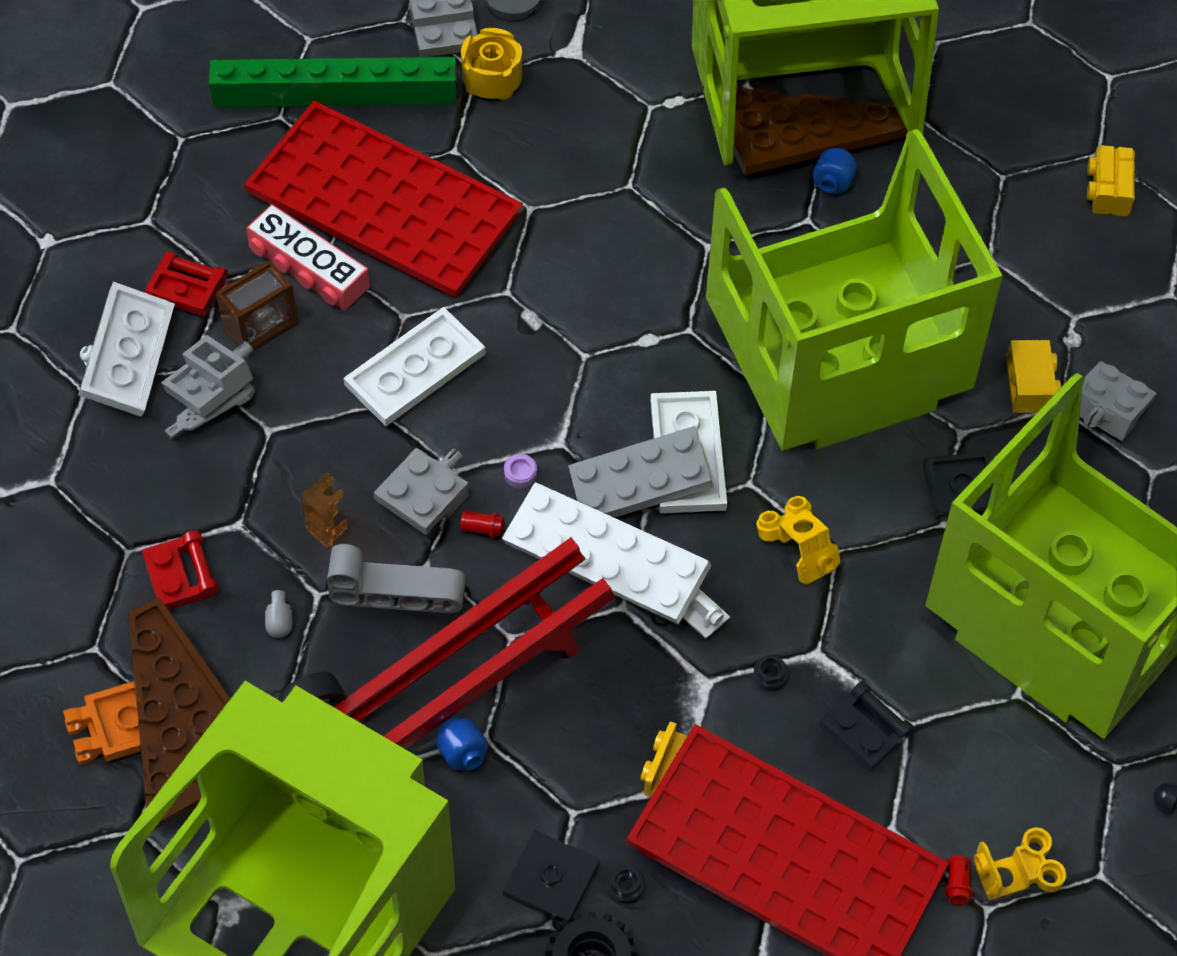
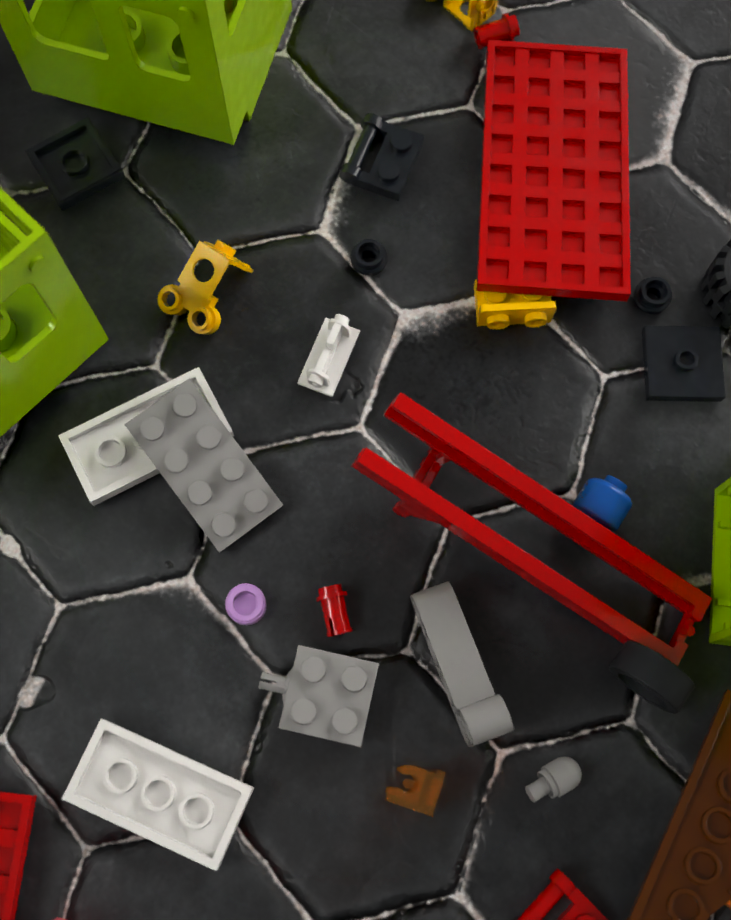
camera: 115 degrees left, 15 degrees up
(629, 560) = (315, 459): white plate -> none

